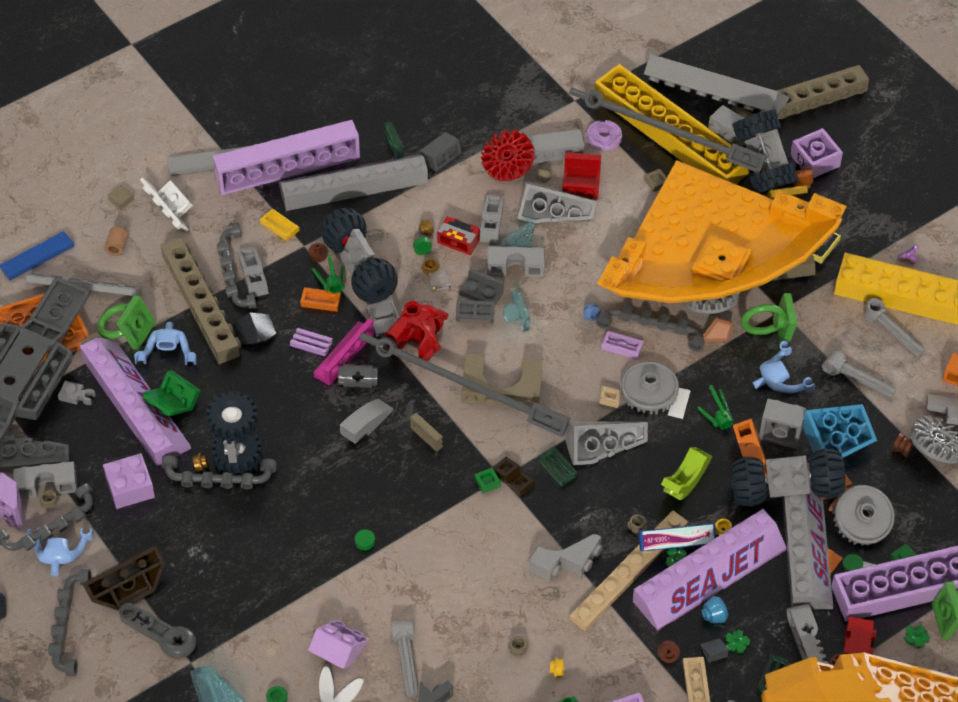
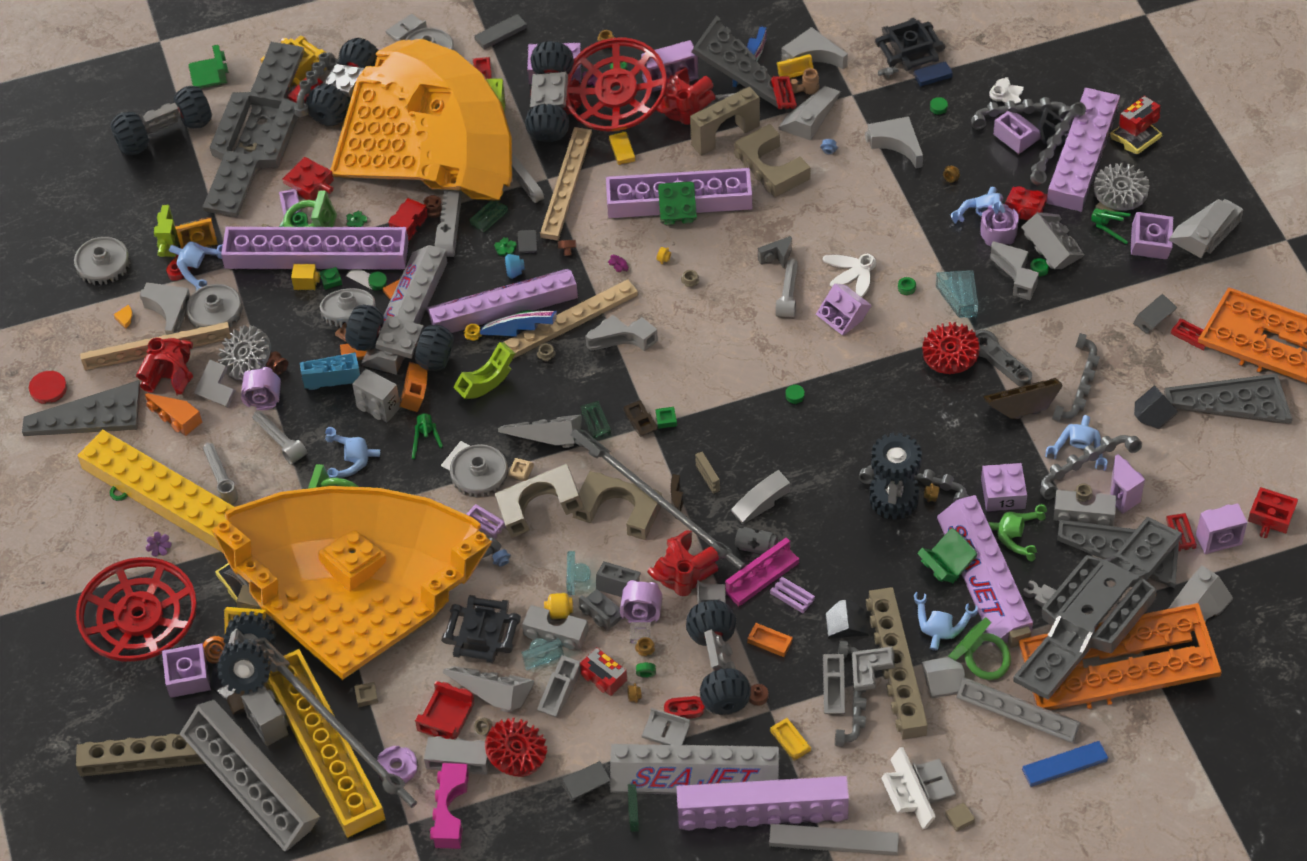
camera: 160 degrees left, 0 degrees up
(115, 444) = (1013, 525): none -> bright green piece
(116, 241) = (974, 754): medium nougat brick -> none
(146, 209) = (931, 771): none -> light grey piece
(160, 303) = (943, 676): none -> light grey slope
(210, 616) = (950, 348): none -> red wheel
(224, 282) = (867, 662): none -> light grey tile
(334, 283) = (751, 643): green plant -> none
(377, 226) = (684, 707): none -> red plate
(397, 209) = (656, 726): none -> light grey piece
(444, 289) = (641, 602): none -> lavender brick
(448, 401) = (676, 496): none -> dark brown slope
(519, 277) = (559, 605): none -> yellow head
(540, 96) = (447, 828): none -> dark pink arch
(563, 374) = (514, 499): none -> arch
(580, 243) = (481, 629): none -> black brick
(603, 644) = (619, 263): none -> magenta plant
(891, 185) = (135, 602): none -> red dish
(899, 404) = (260, 388): none -> lavender brick
(929, 542) = (305, 277): none -> yellow brick

